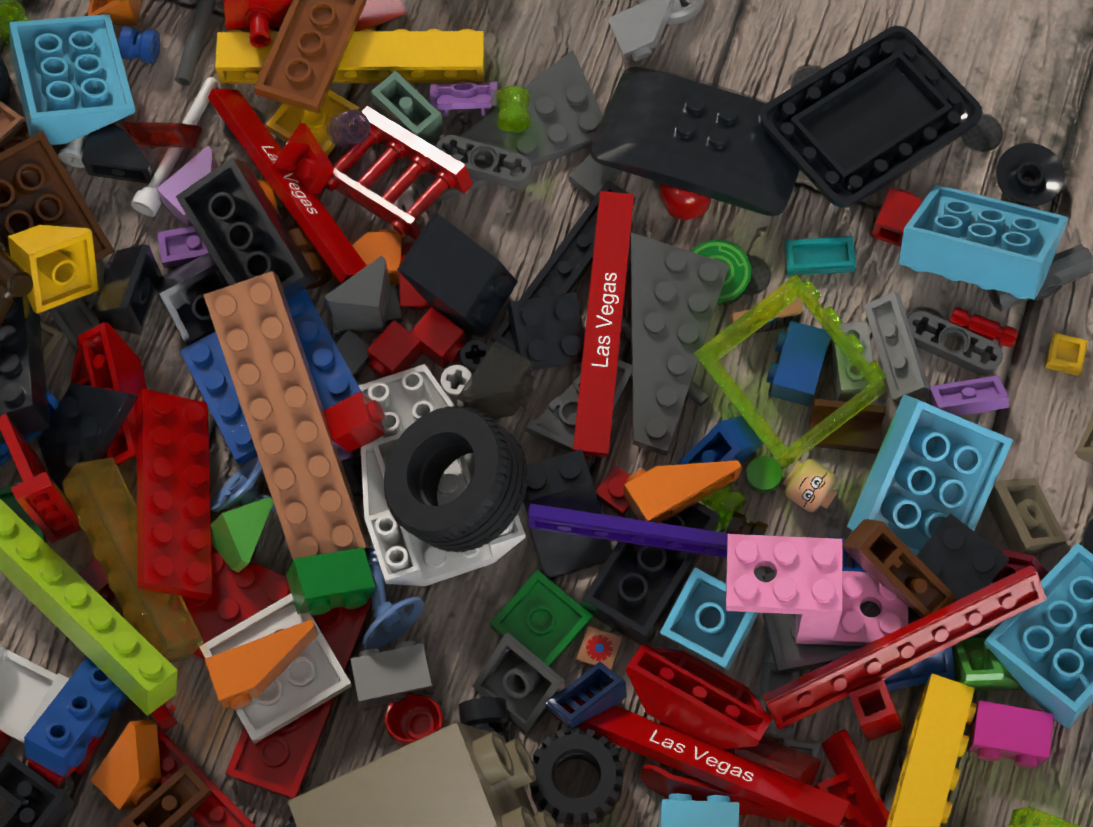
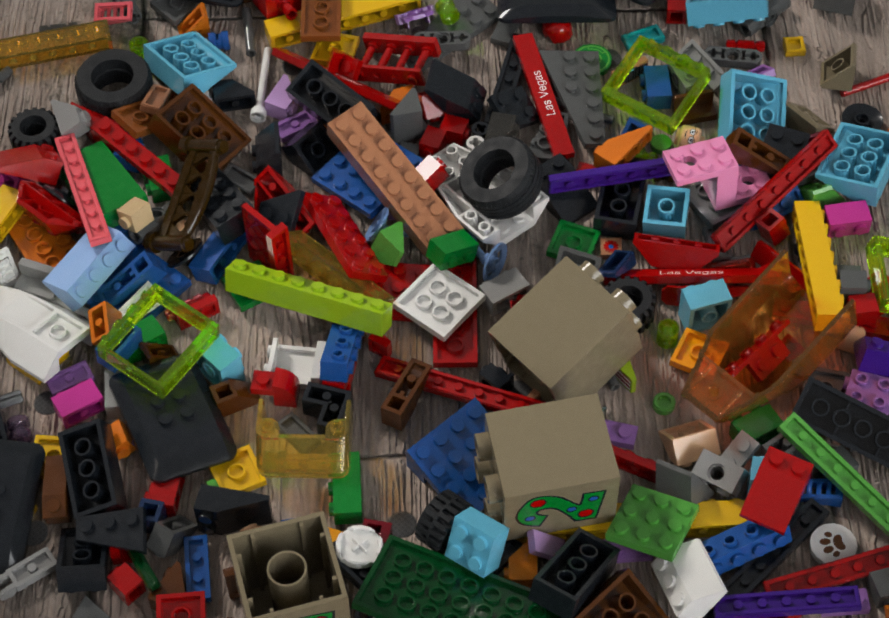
camera: 20 degrees left, 15 degrees down
(58, 261) = (239, 149): yellow slope -> none
(131, 766) = (379, 372): orange slope -> none
(163, 134) = (255, 75): clear red slope -> none
(254, 666) = (427, 300): orange slope -> none
(340, 130) = (359, 44): wheel -> none
(407, 108) = (387, 24): sand green brick -> none

